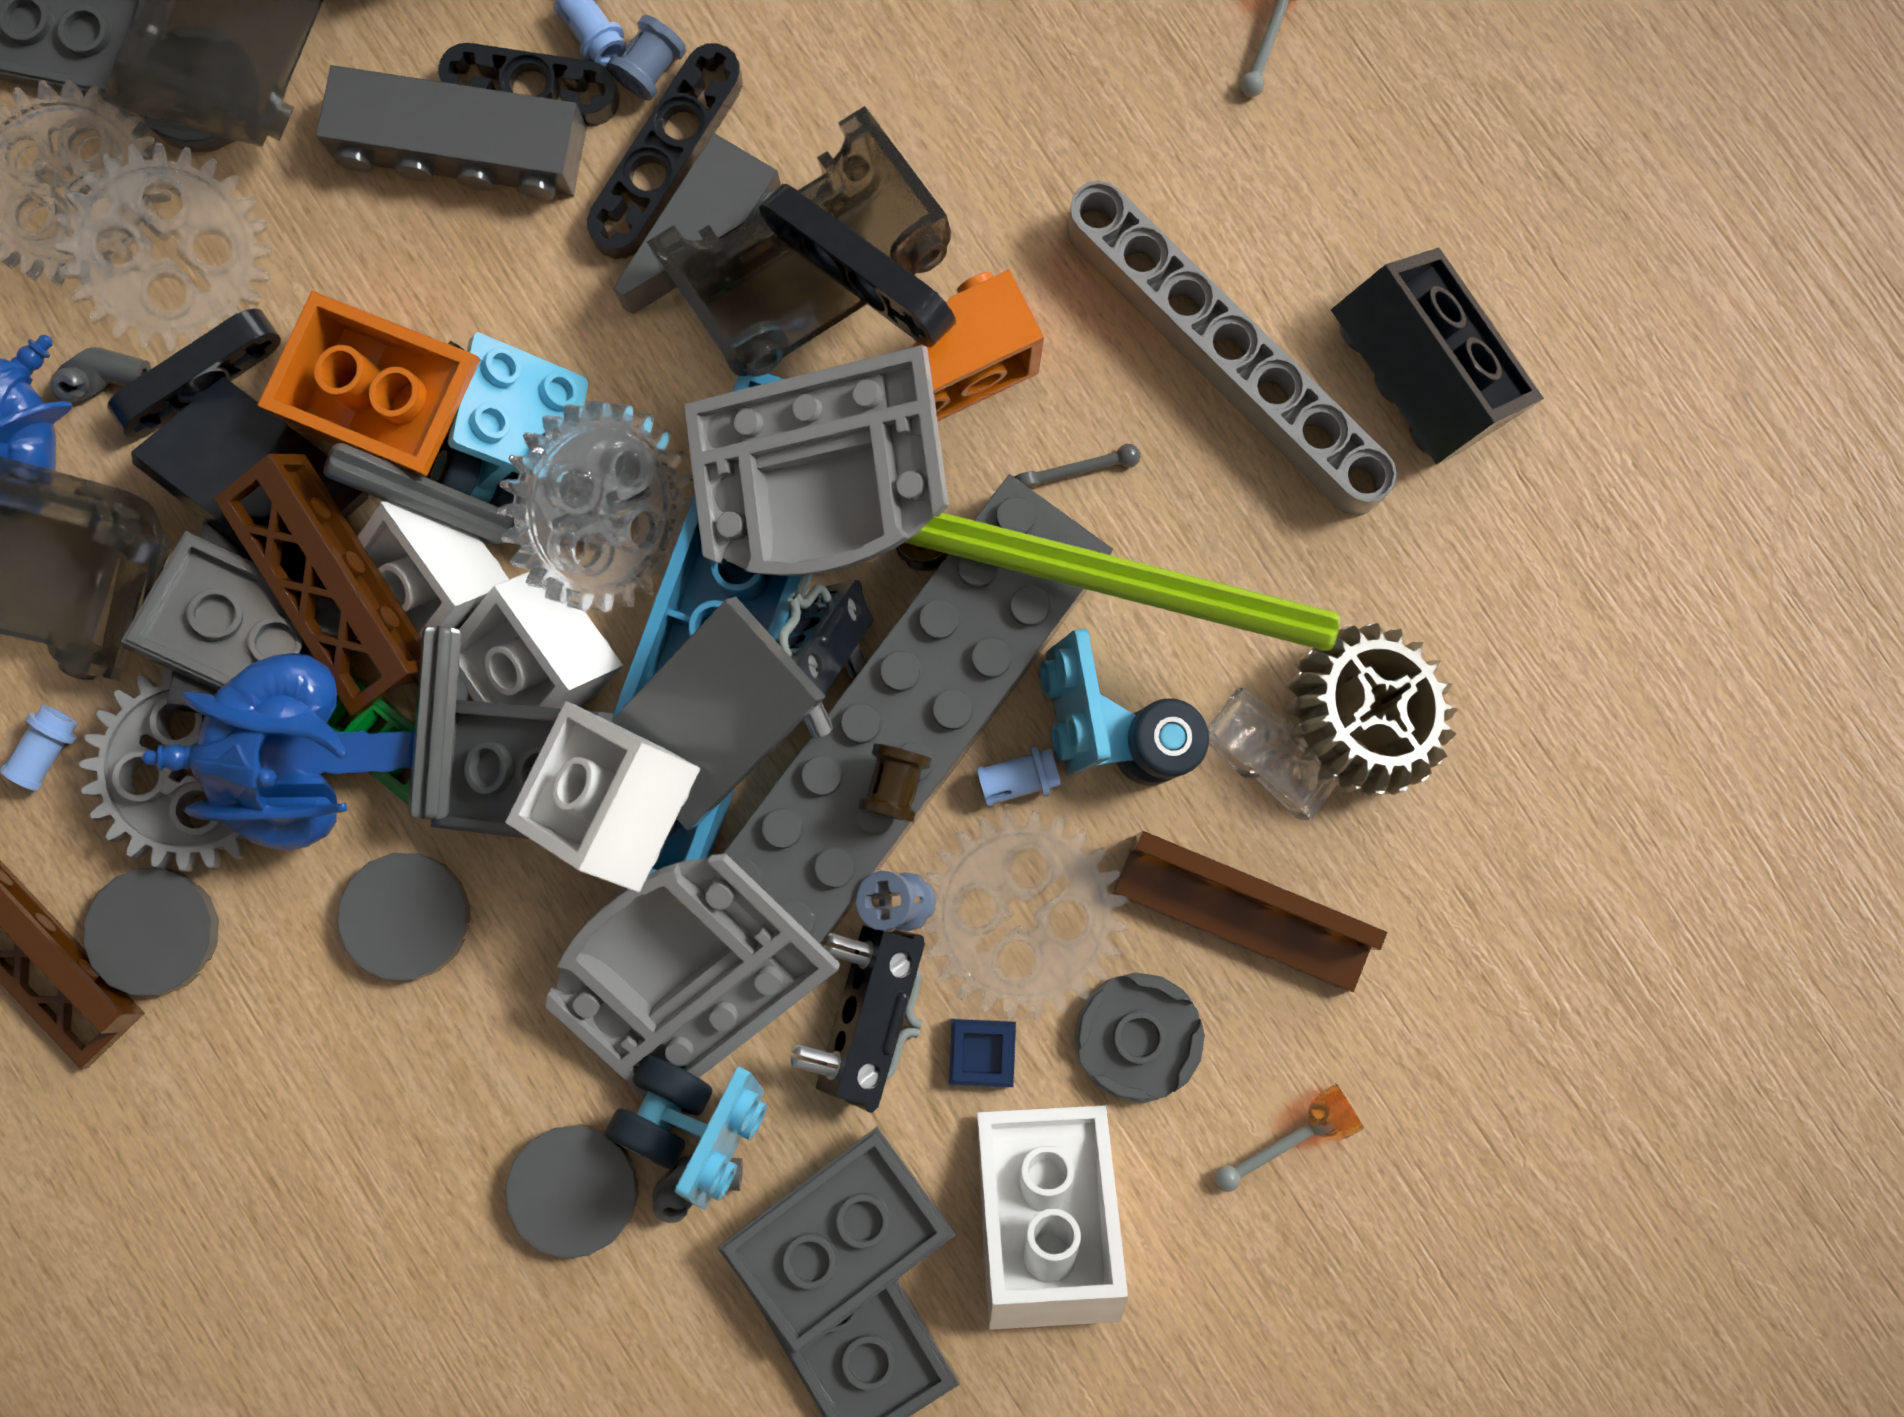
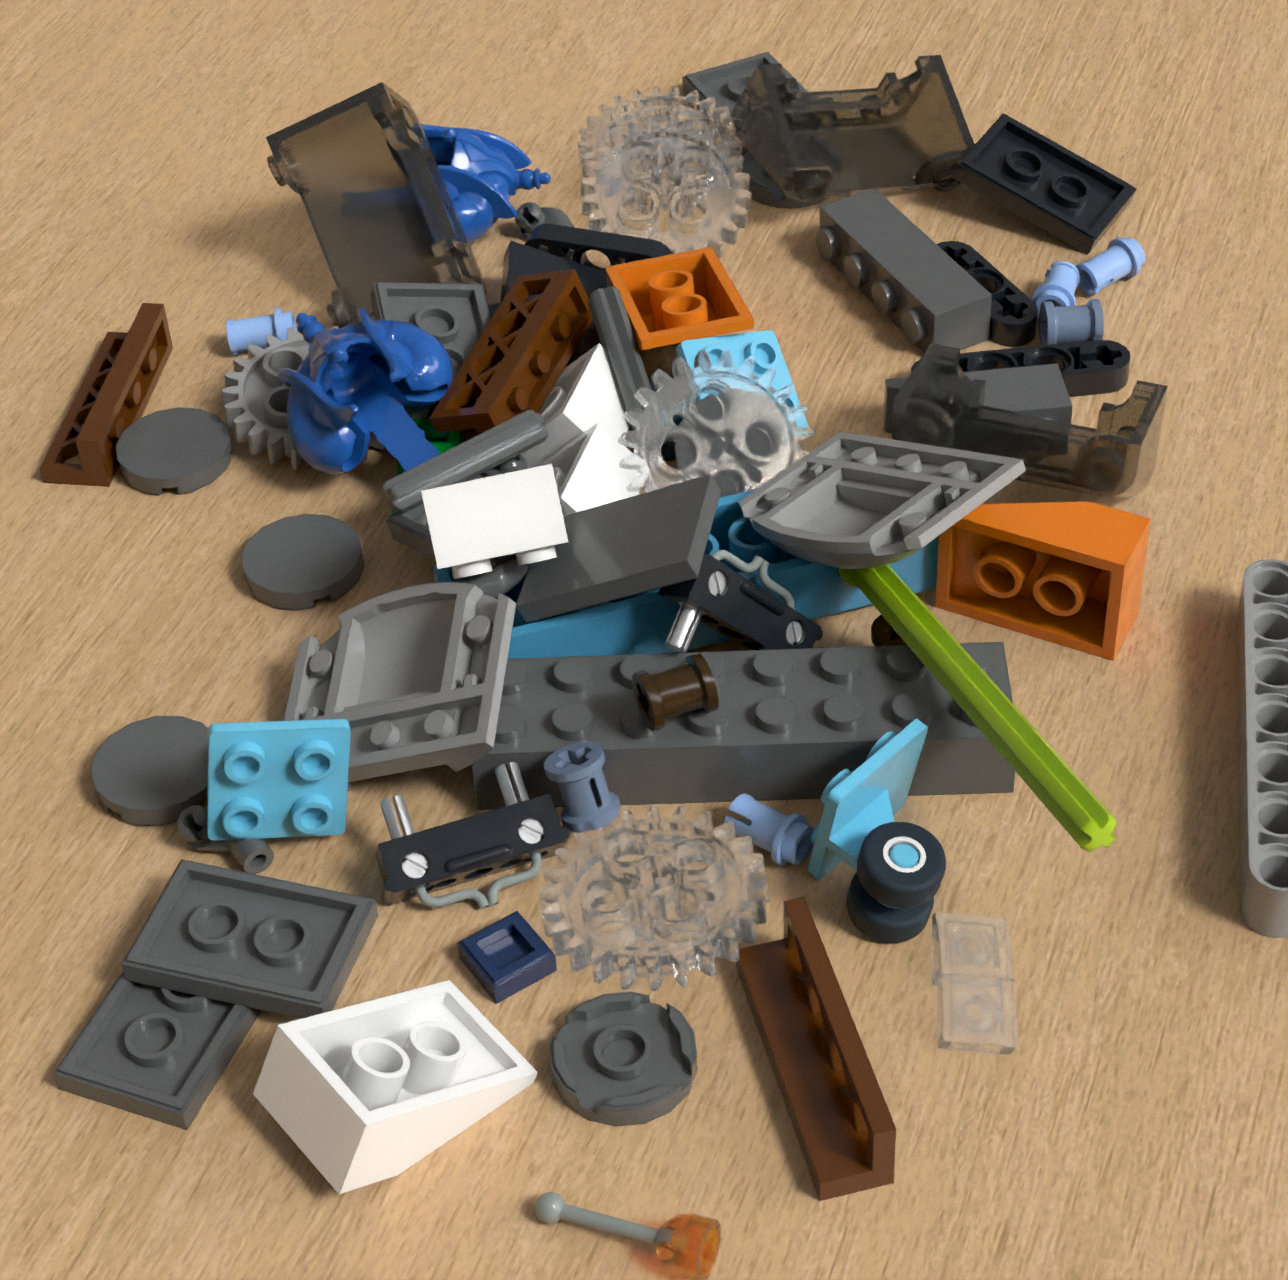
camera: 55 degrees right, 40 degrees down
(858, 265) = (1048, 443): black beam -> none
(1127, 456) = (1112, 744): dark grey hinge -> none
(1403, 729) = (1086, 1008): dark tan gear -> none

